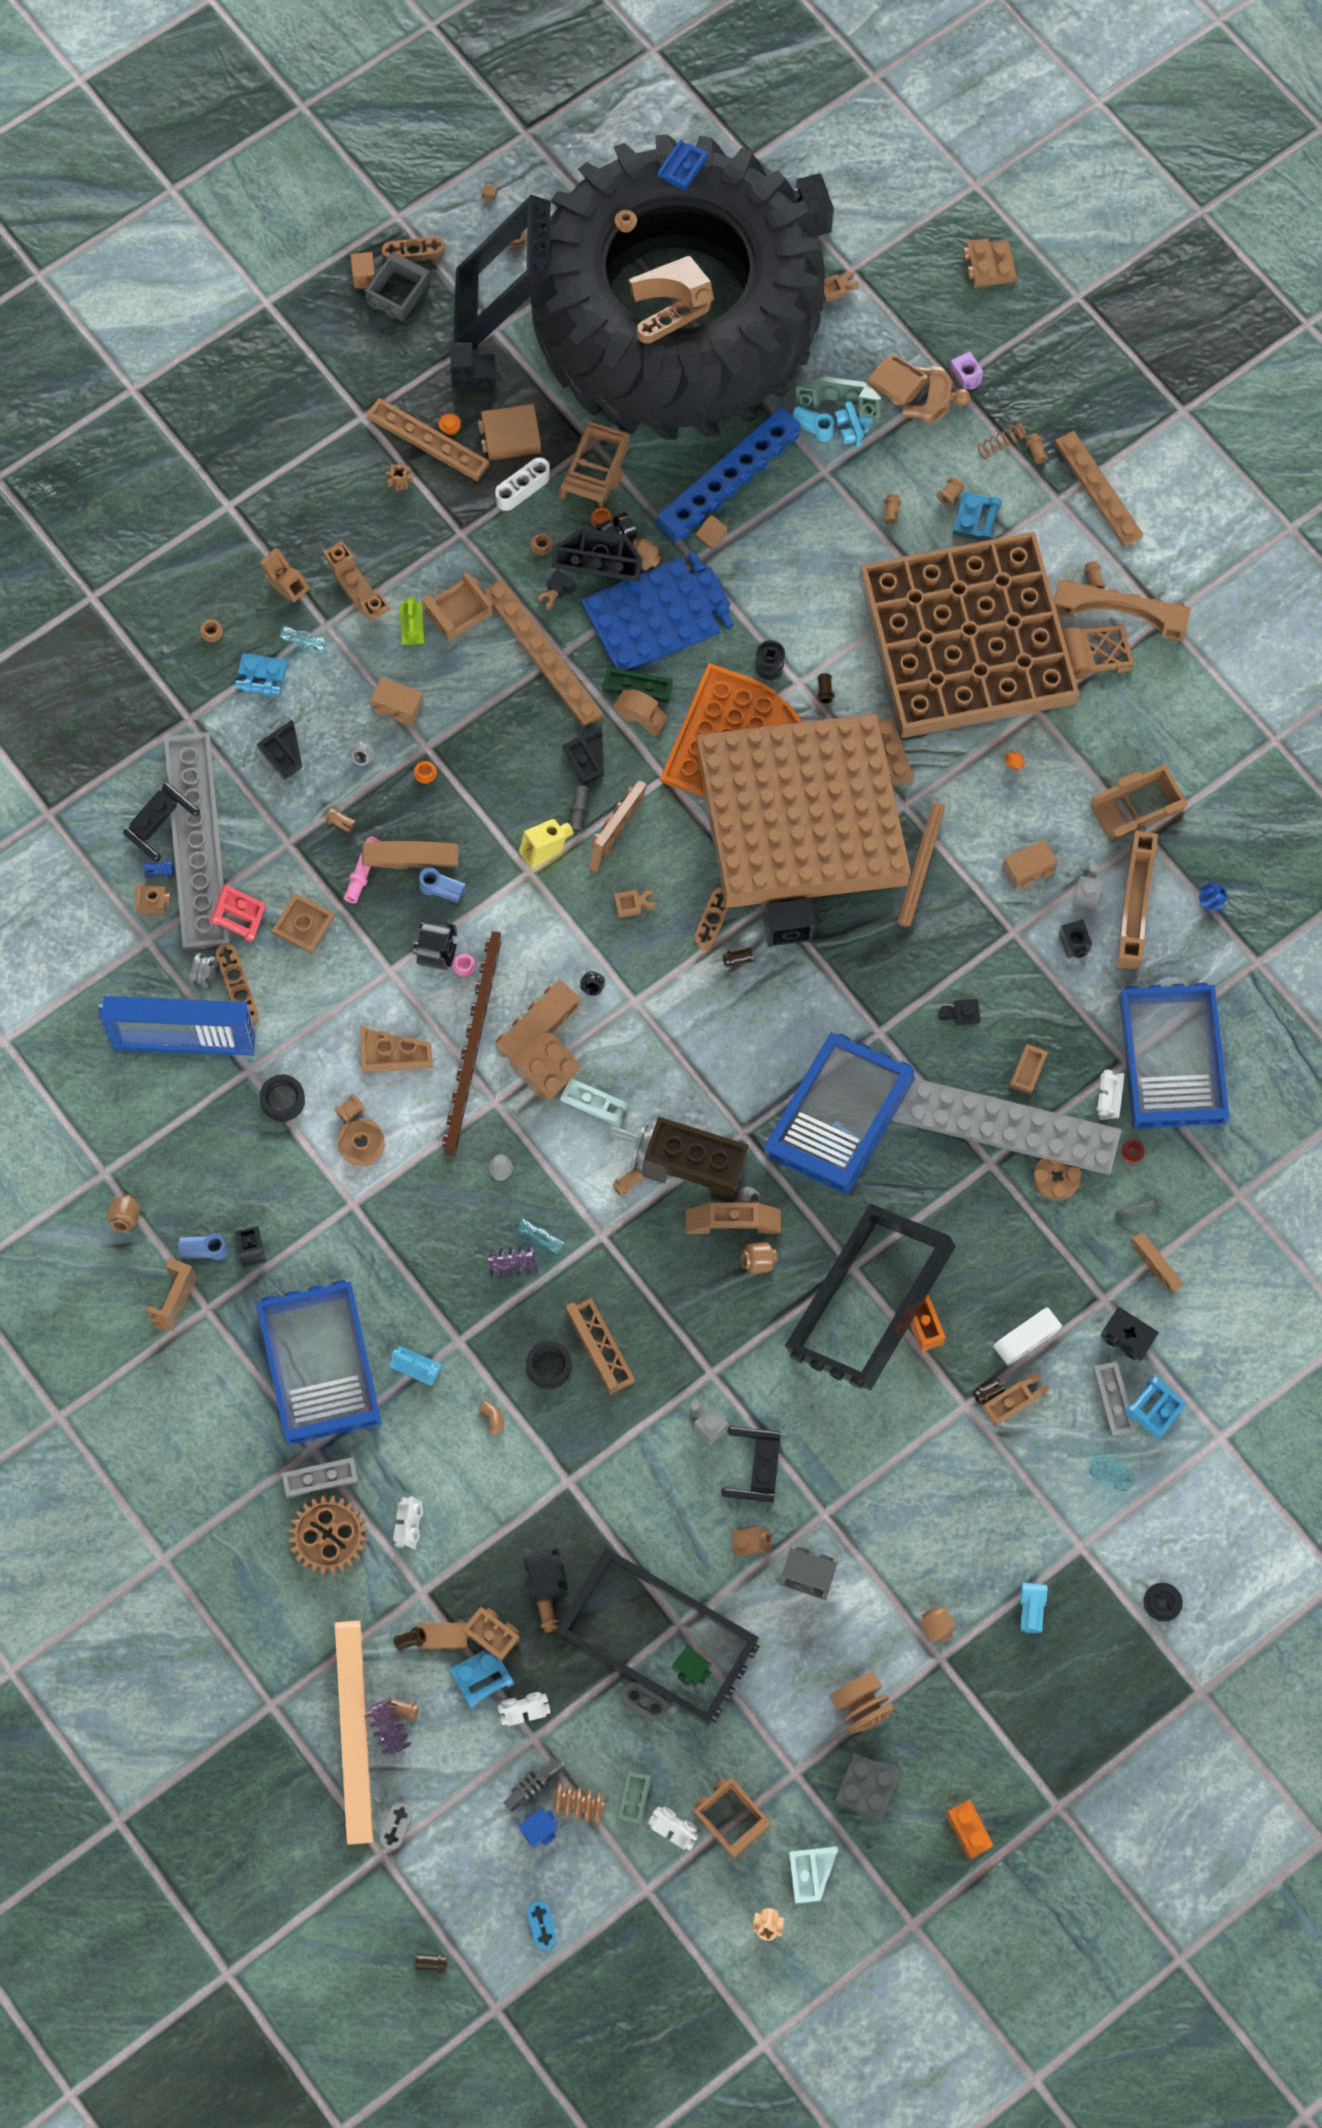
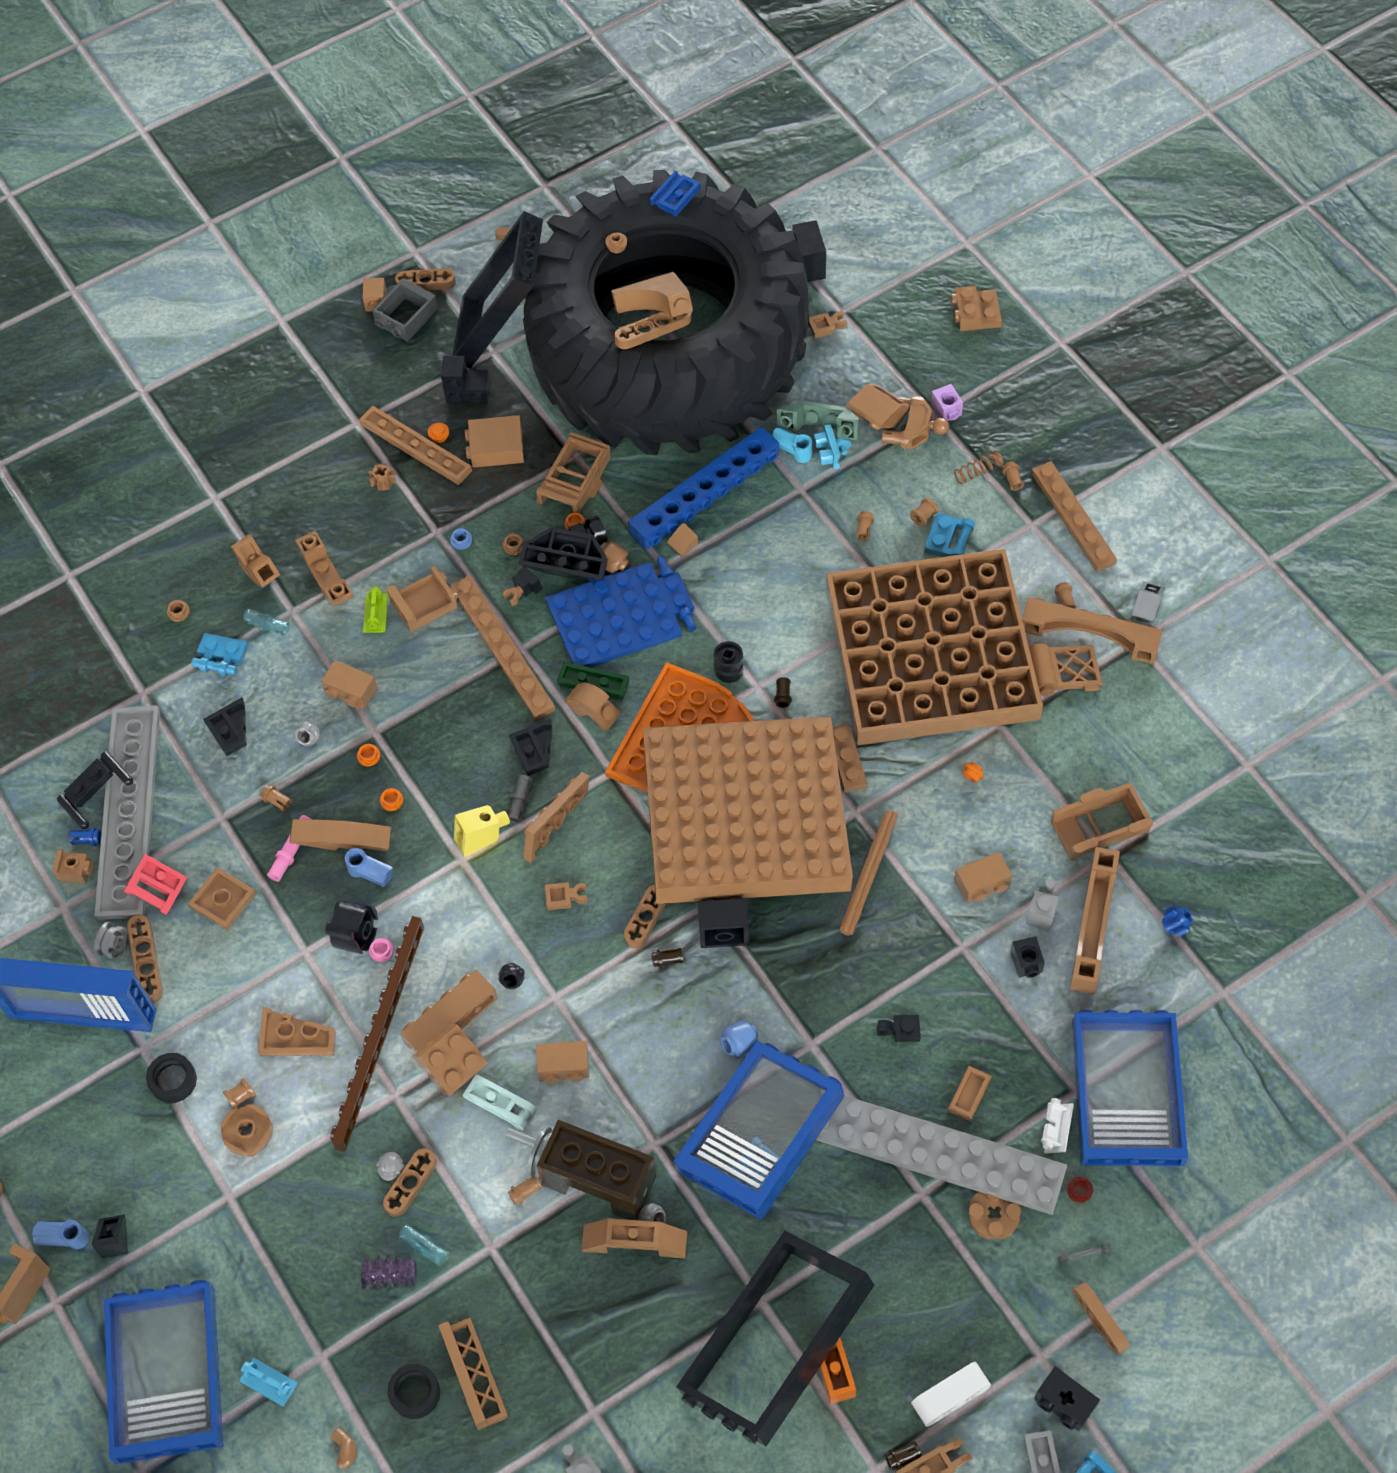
camera: 10 degrees right, 10 degrees down
(454, 816) = (391, 799): none -> orange plate
(487, 535) = (460, 534): none -> medium blue plate
(522, 1163) = (393, 1194): none -> medium nougat beam
(524, 475) = (489, 493): white beam -> none
(650, 1061) = (562, 1061): none -> medium nougat brick
(758, 1257) = (657, 1284): medium nougat head -> none
(812, 1030) = (738, 1038): none -> medium blue head
(1175, 577) = (1148, 602): none -> slope

